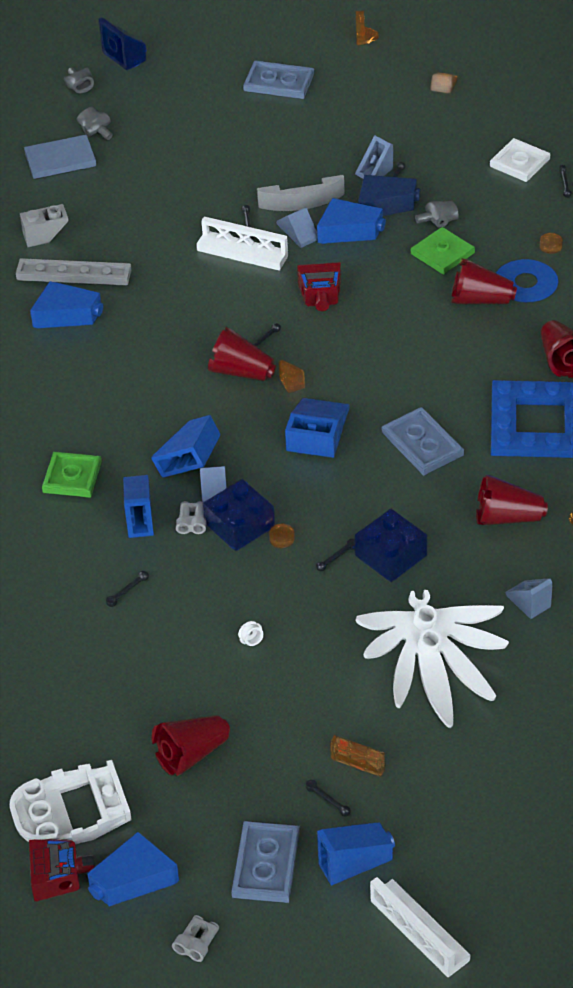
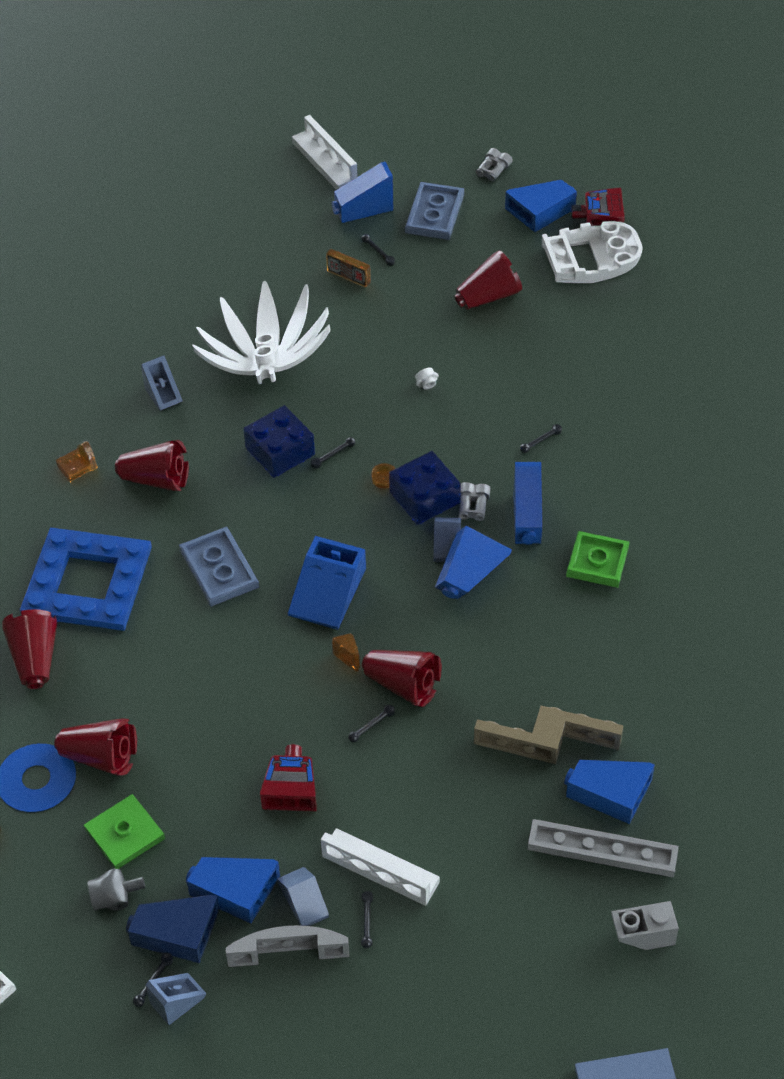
camera: 175 degrees left, 5 degrees up
(116, 335) = (548, 734): none -> dark tan bracket

